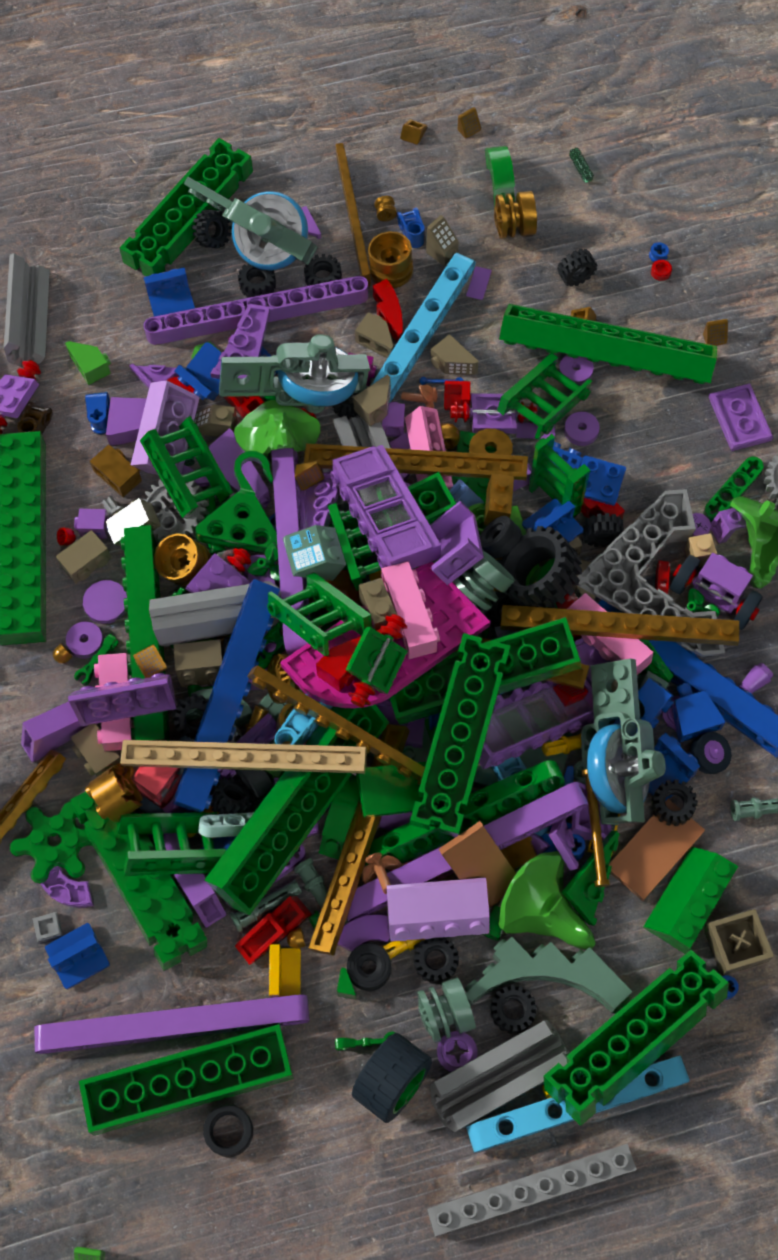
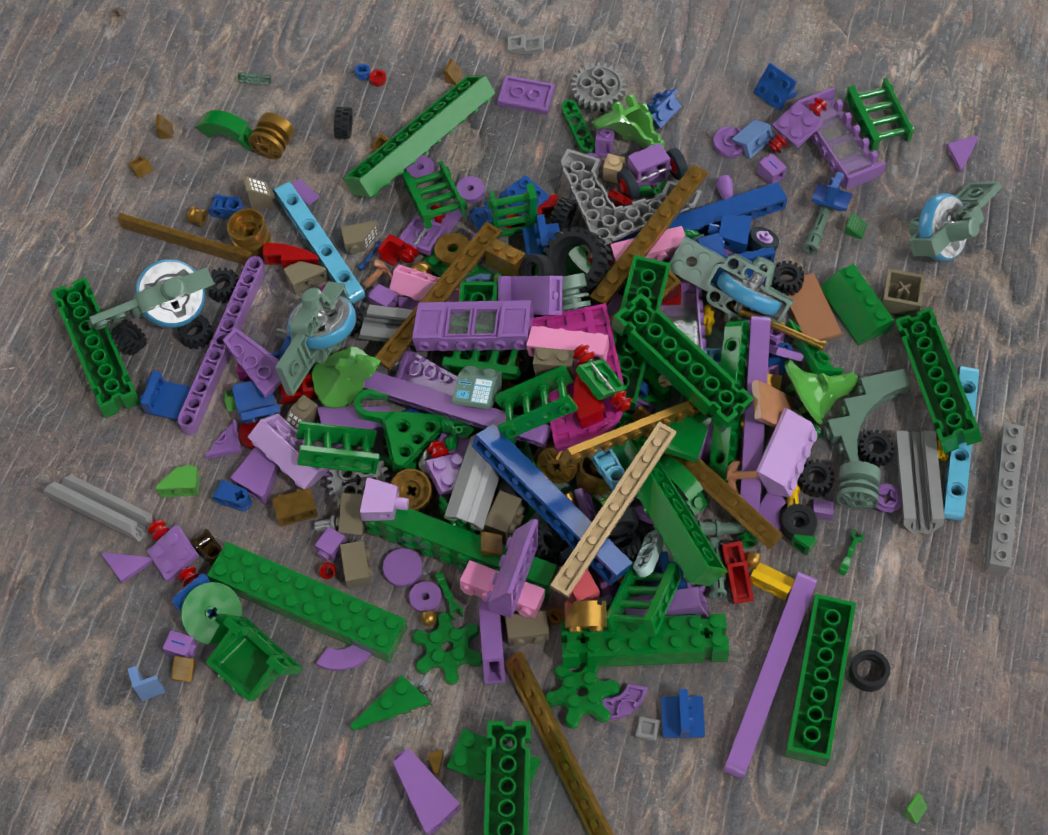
camera: 60 degrees left, 5 degrees down
(27, 682) = (447, 661): none -> green plate
(140, 535) = (381, 501): none -> lavender torso
(308, 474) = (398, 369): pearl gold slope -> none
(373, 402) = (368, 299): dark tan slope -> none
(391, 1077) = (891, 539): black wheel -> none
(403, 986) = (823, 509): none -> medium lavender slope

